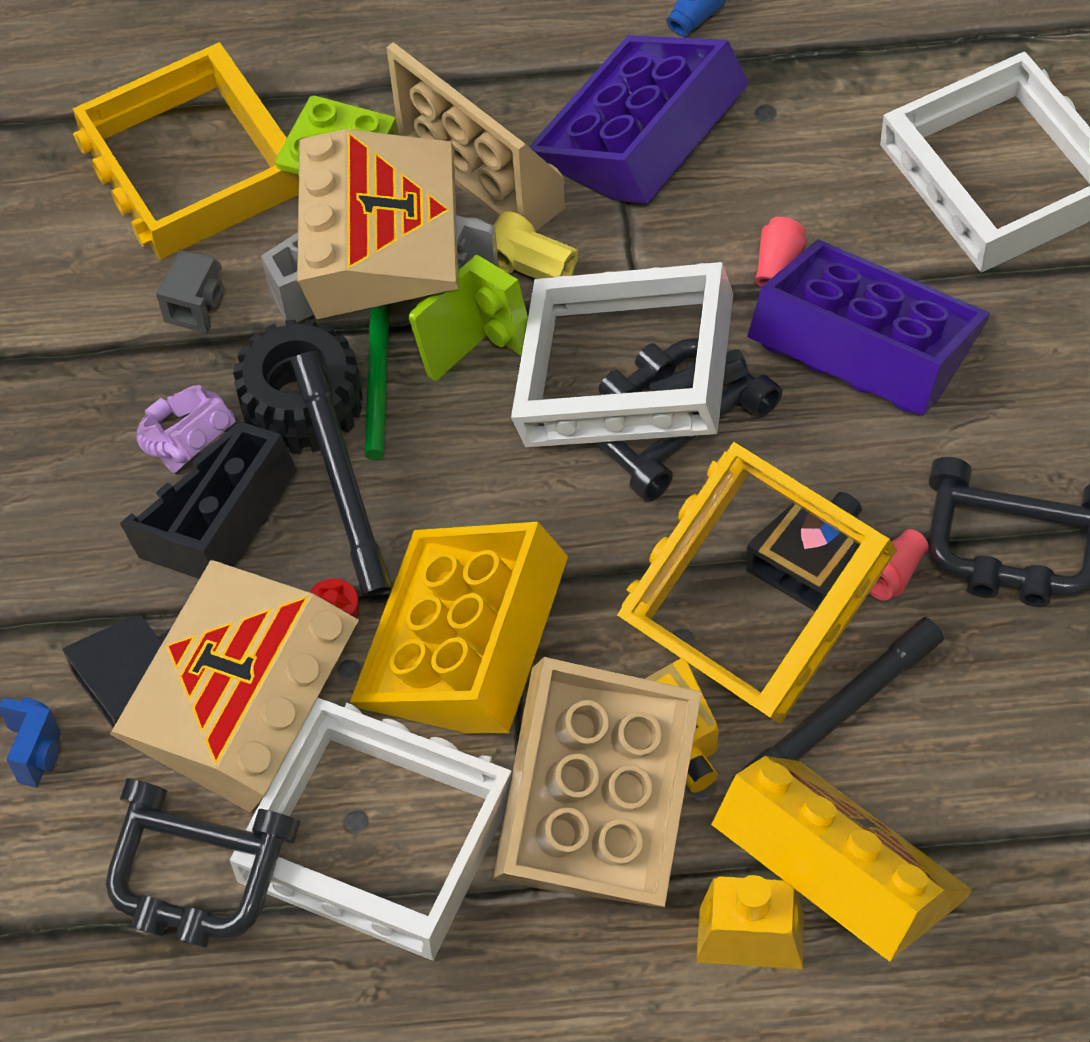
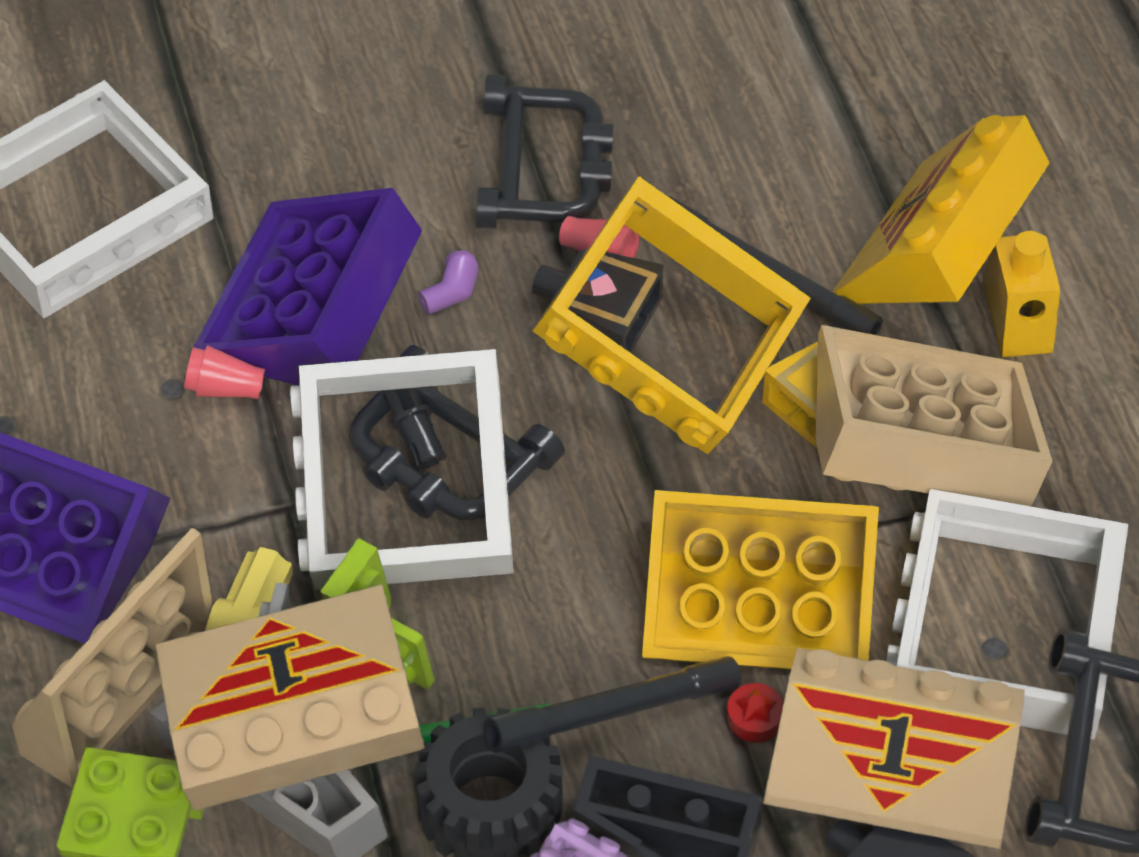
camera: 105 degrees left, 5 degrees down
(864, 442) = (456, 284): none -> medium lavender arm

